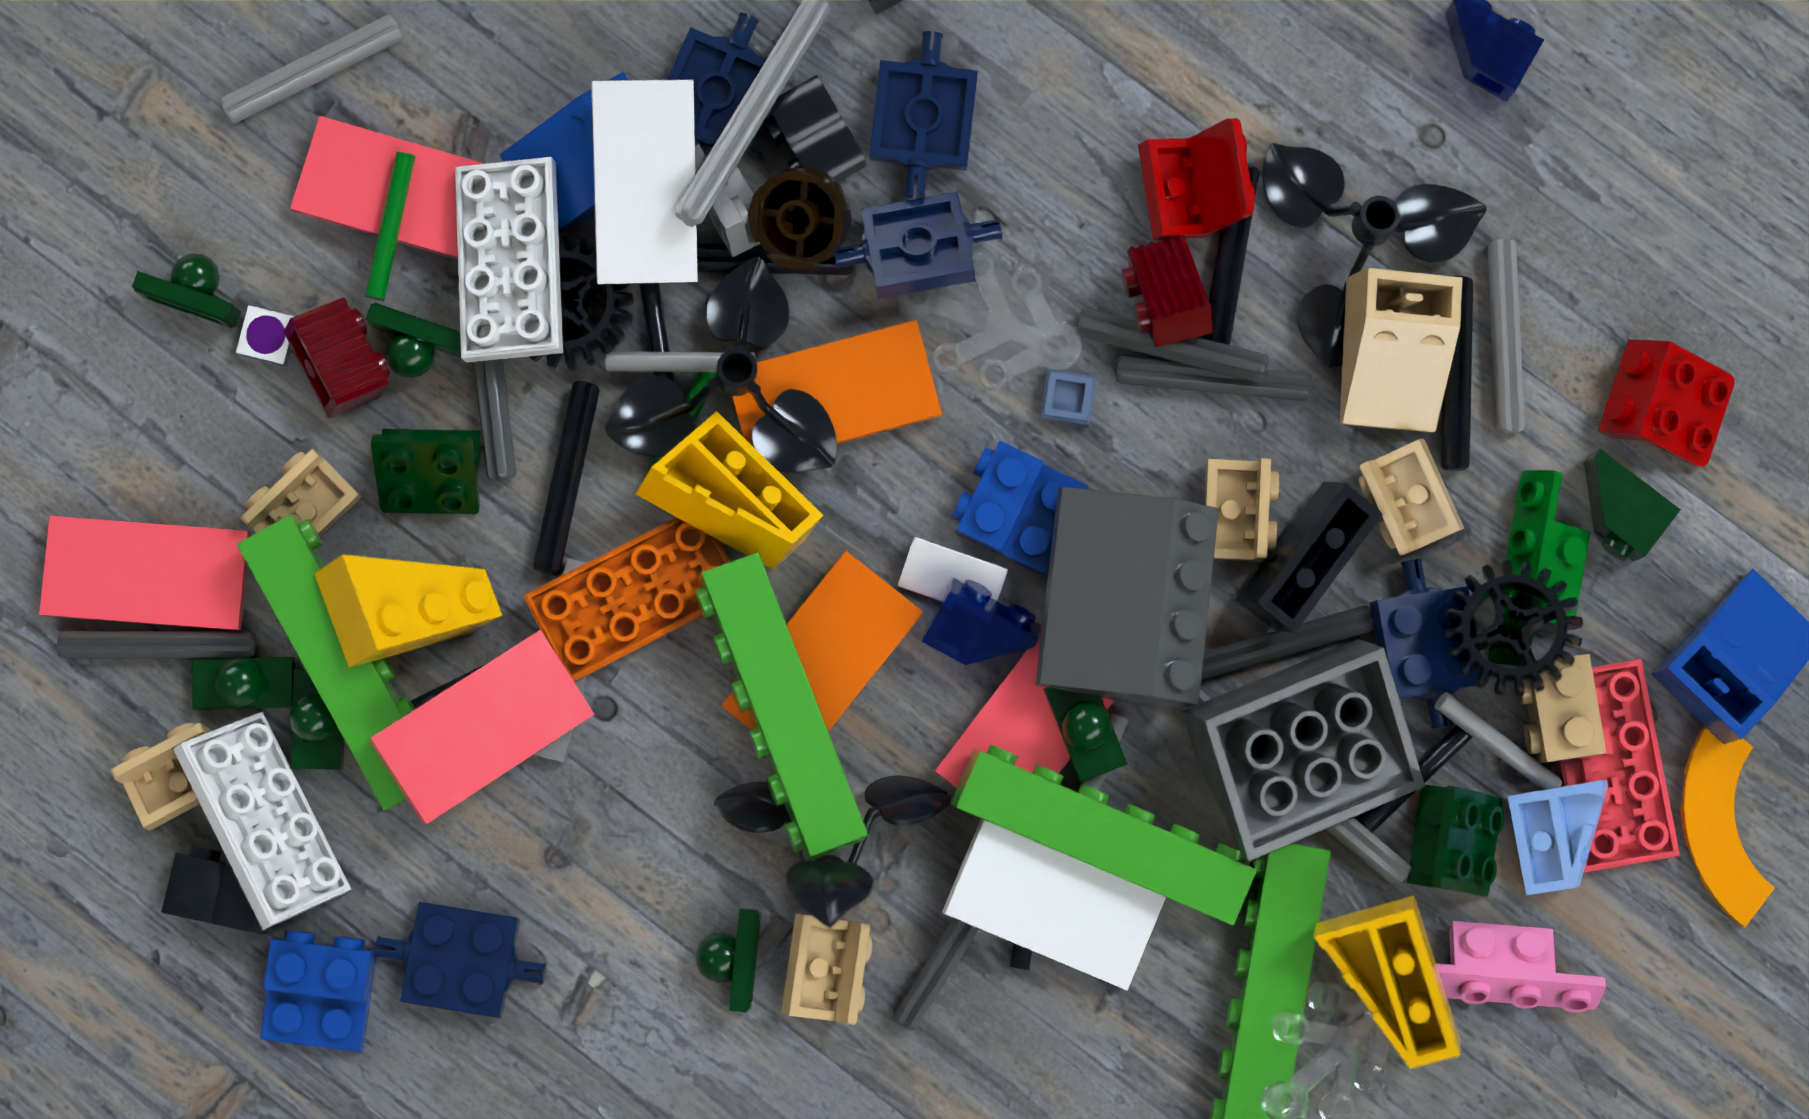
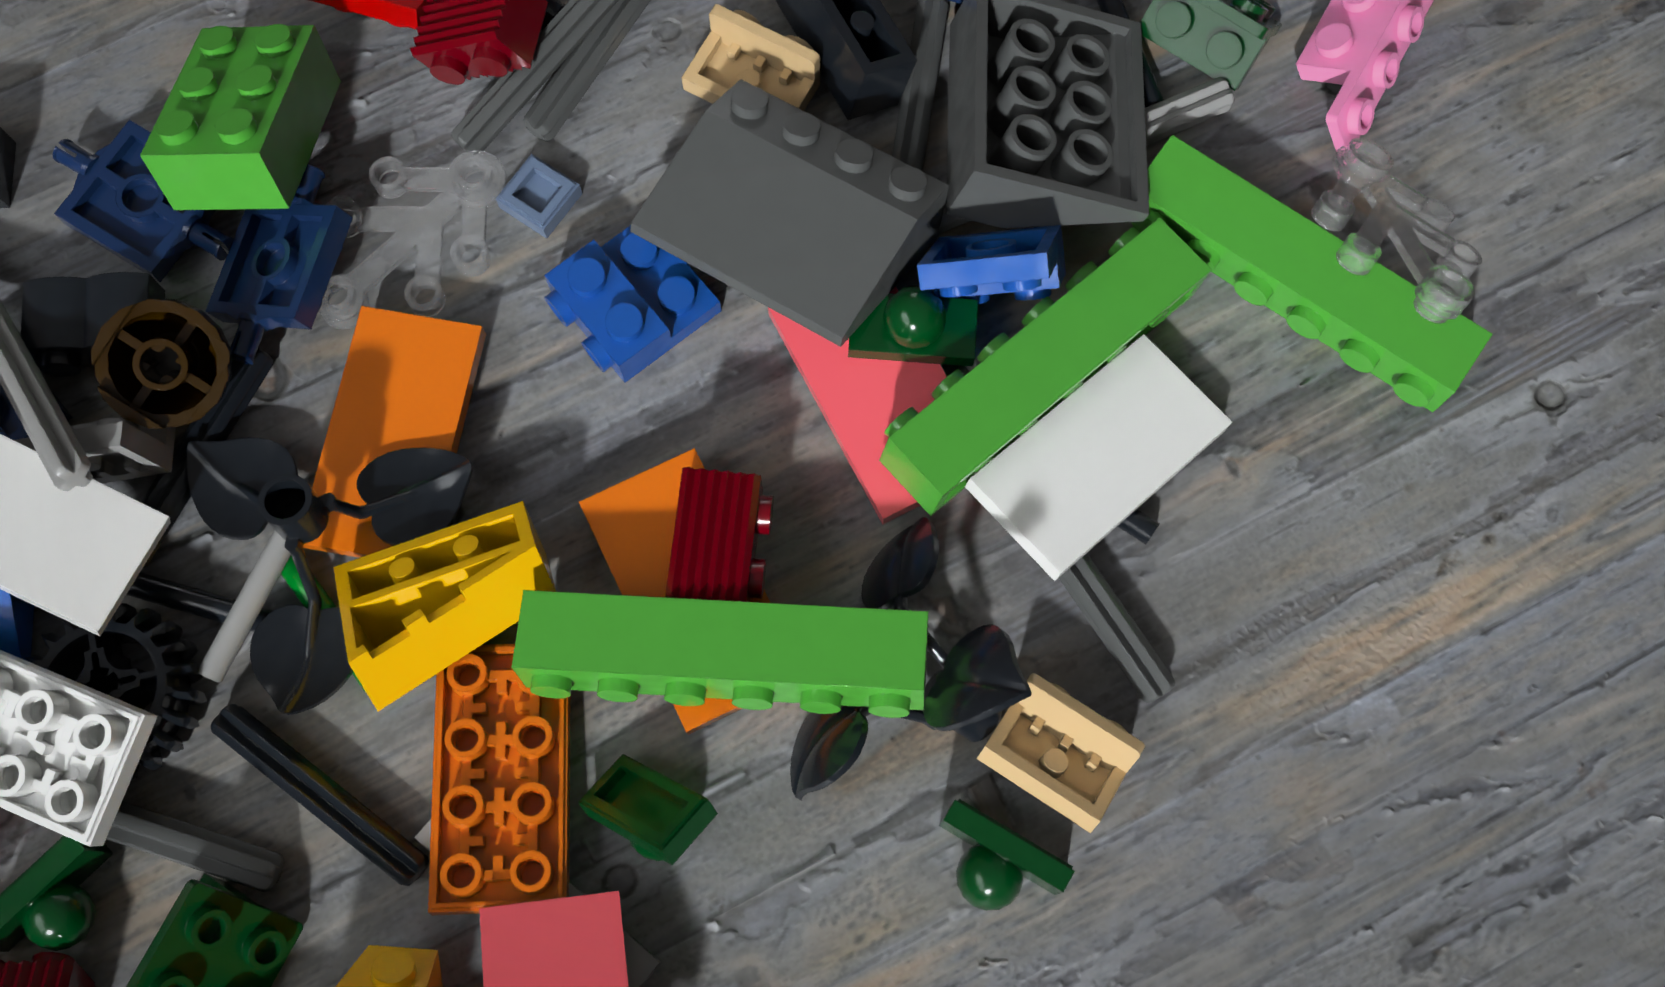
camera: 65 degrees left, 10 degrees down
(656, 706) = (648, 809): none -> dark green tile
(858, 665) = (718, 536): none -> dark red brick
(932, 568) = (670, 402): white slope -> none
(977, 627) = (743, 397): clear blue slope -> none
(1011, 163) = (242, 118): none -> bright green brick
(1158, 763) = (995, 263): none -> blue plate
(1396, 977) = (1351, 110): yellow wedge -> none

